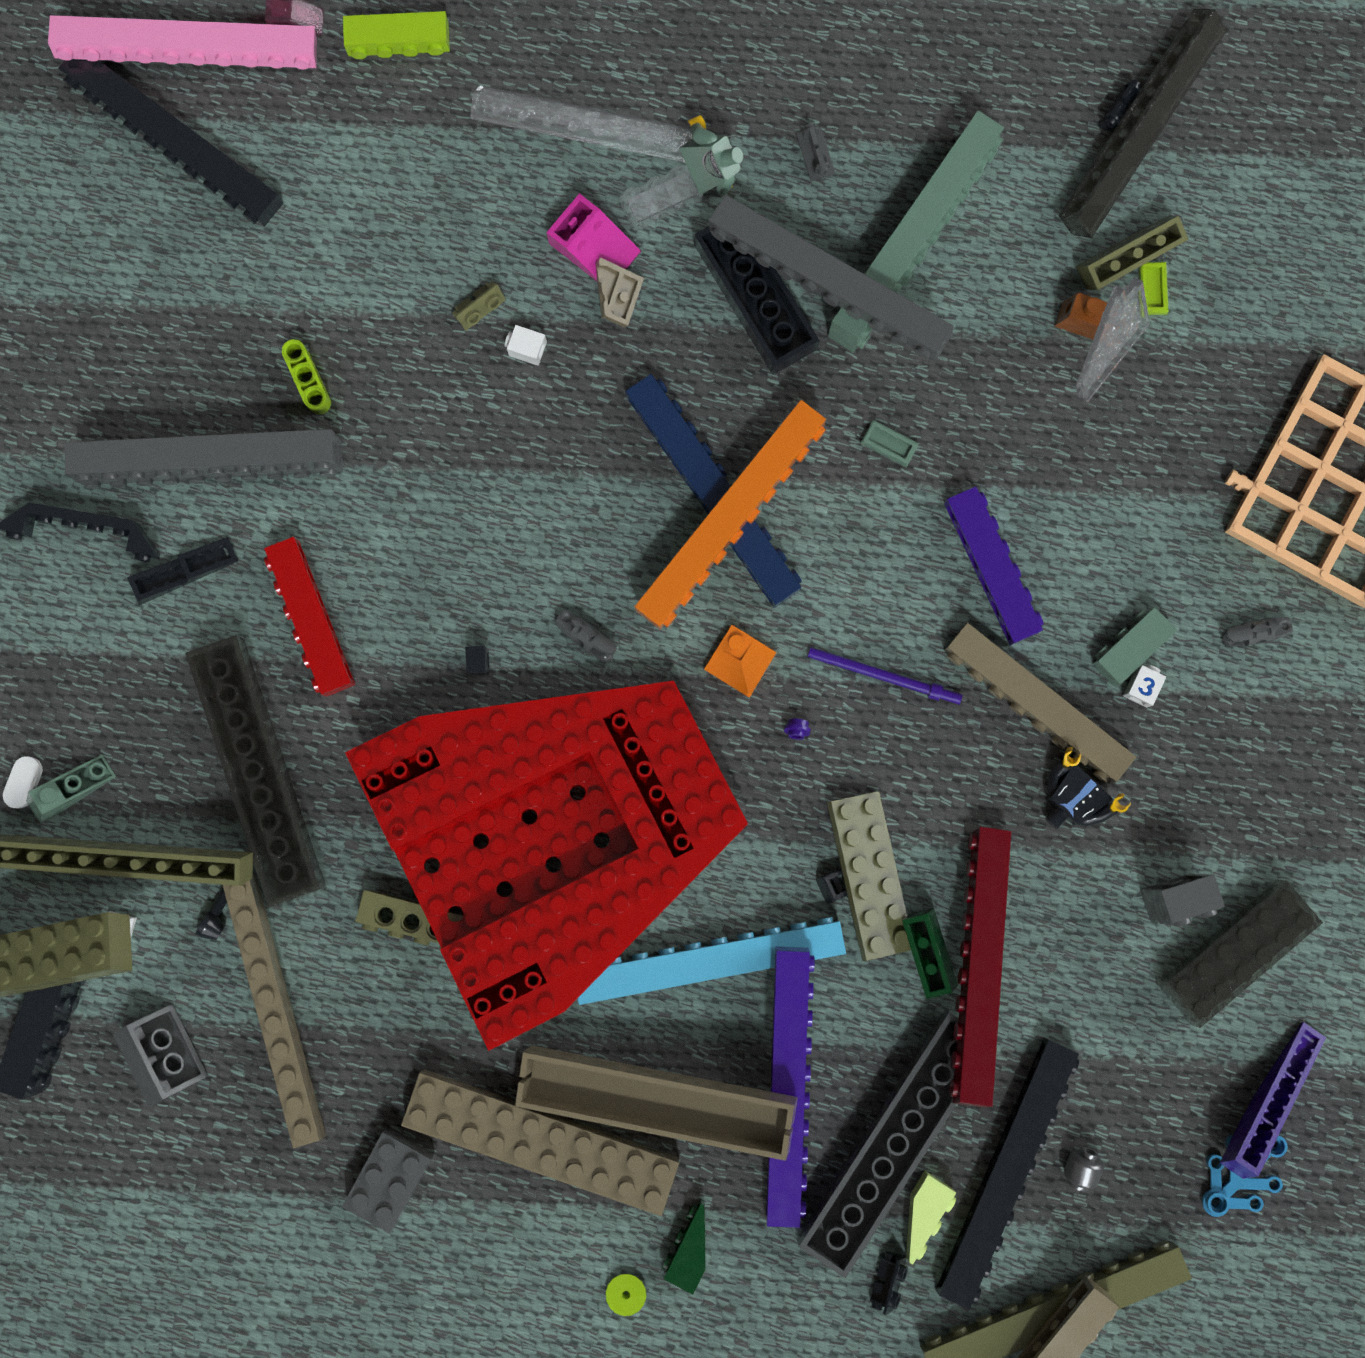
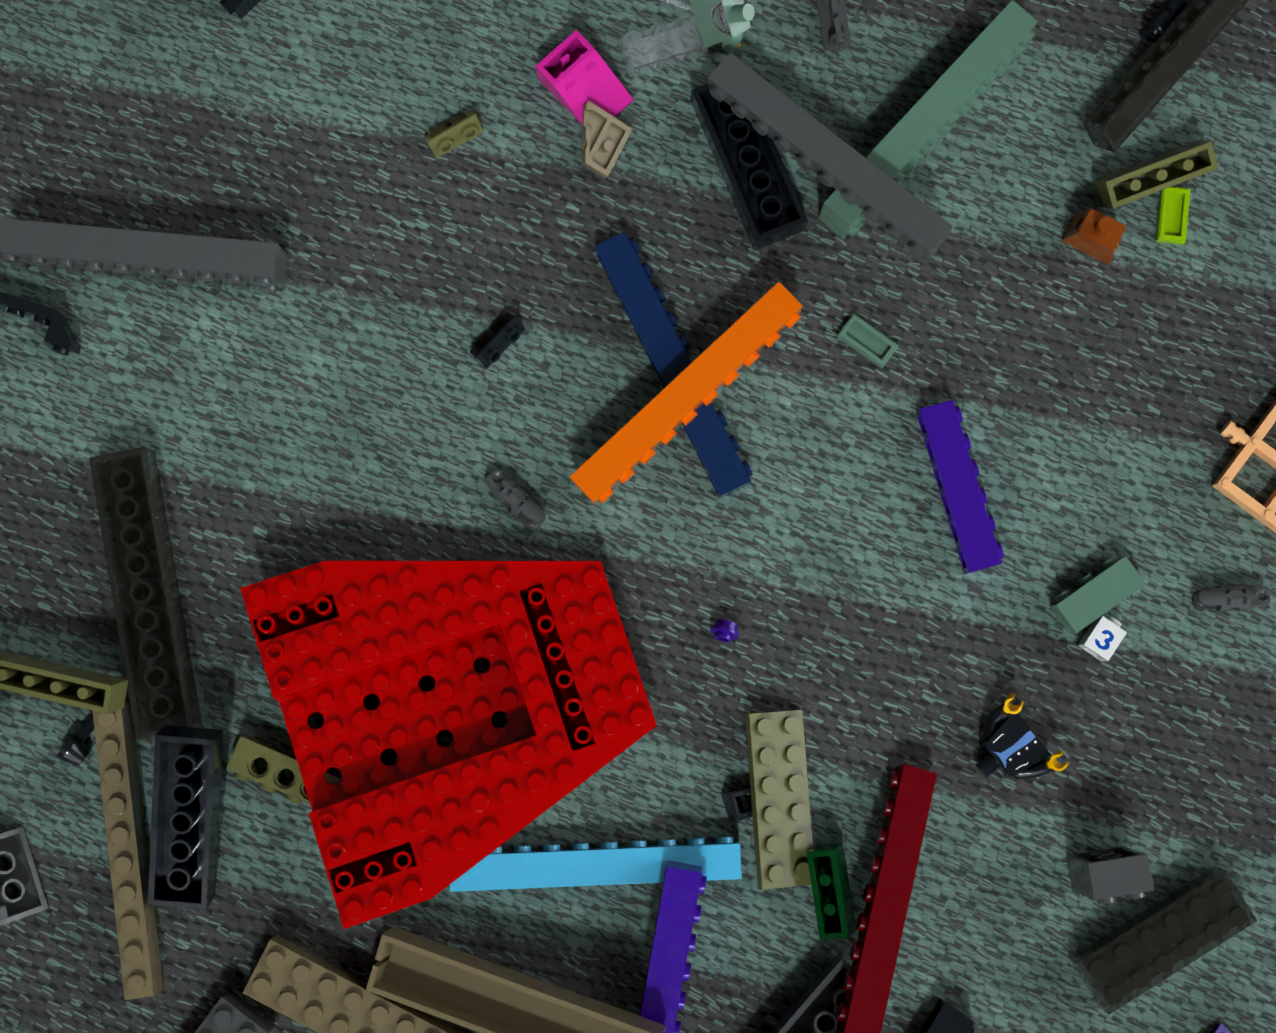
camera: 10 degrees right, 0 degrees up
(181, 571) = (100, 370): black slope -> none
(301, 366) = (253, 174): lime beam -> none
(309, 617) = (226, 438): red brick -> none
(324, 971) = (185, 817): none -> black brick
(477, 660) = (397, 509): black slope -> none
(526, 344) = (497, 182): white brick -> none
(555, 481) = (506, 331): none -> black hinge
(740, 660) = (674, 549): orange plate -> none
(933, 691) = (877, 611): dark purple bar -> none
(1039, 703) = (987, 641): dark tan brick -> none
(1117, 332) = (1126, 258): clear wing -> none

